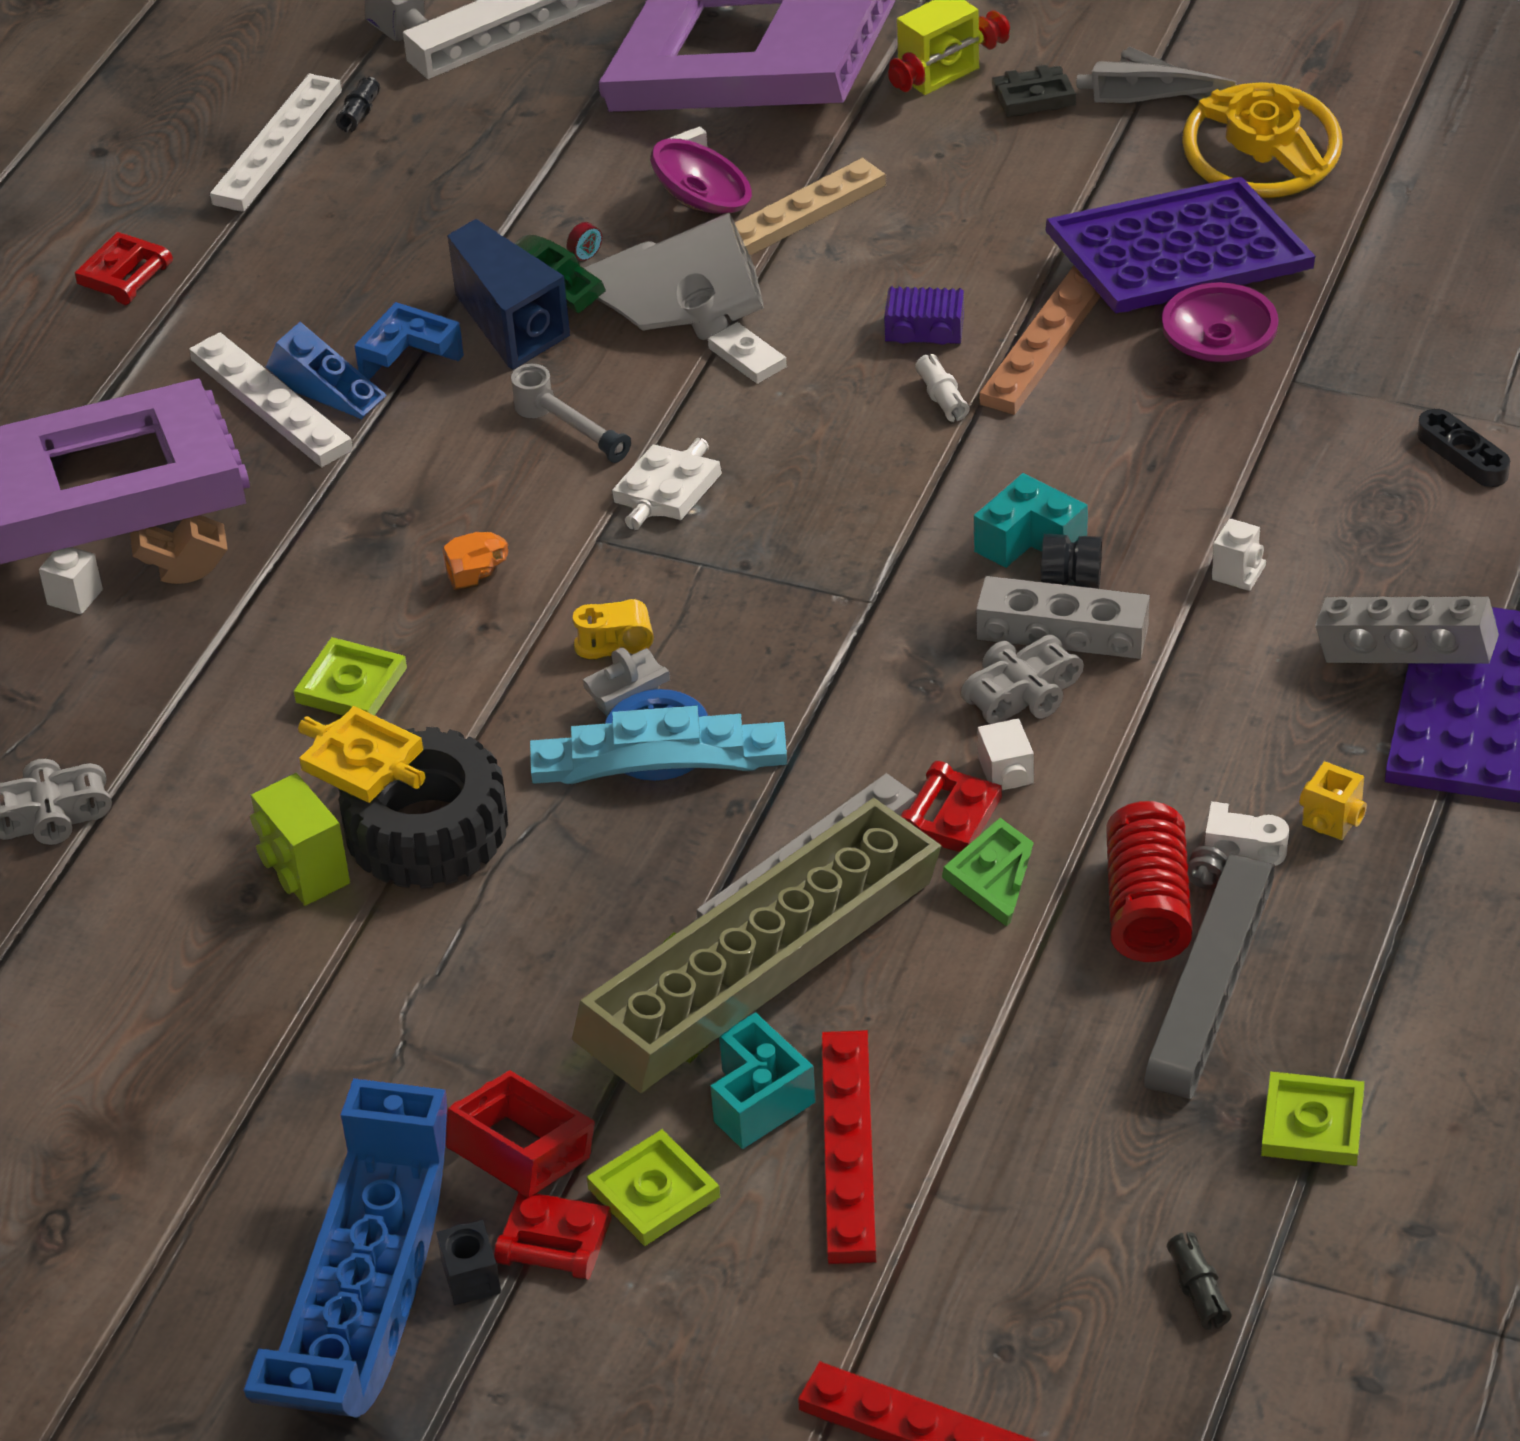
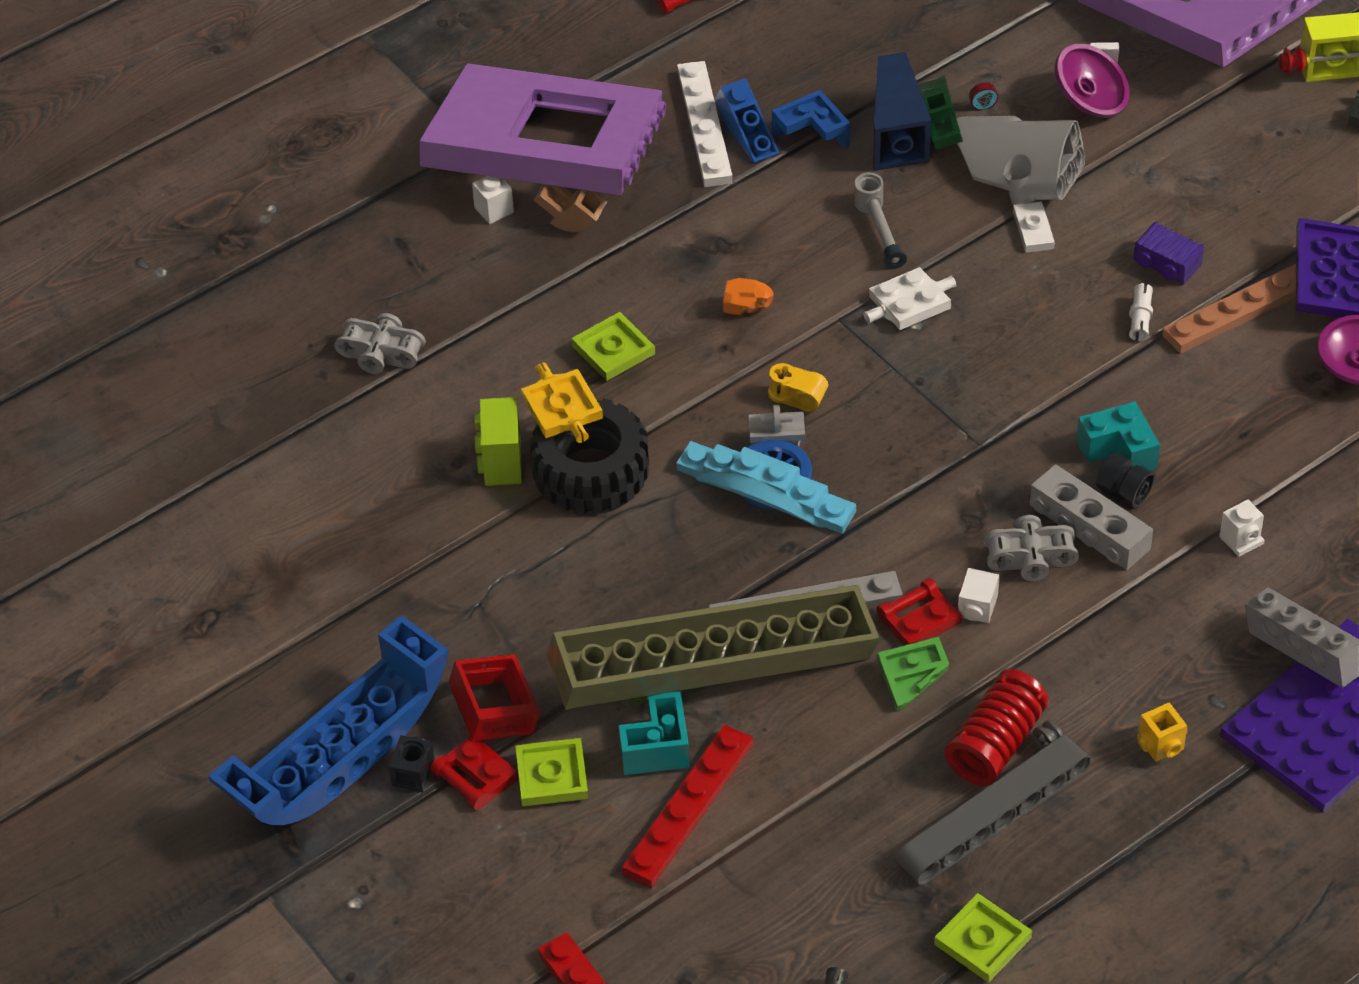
camera: 30 degrees right, 5 degrees up
(809, 204) = (1152, 134): tan plate -> none
(1247, 836) = (1089, 729): white leg -> none

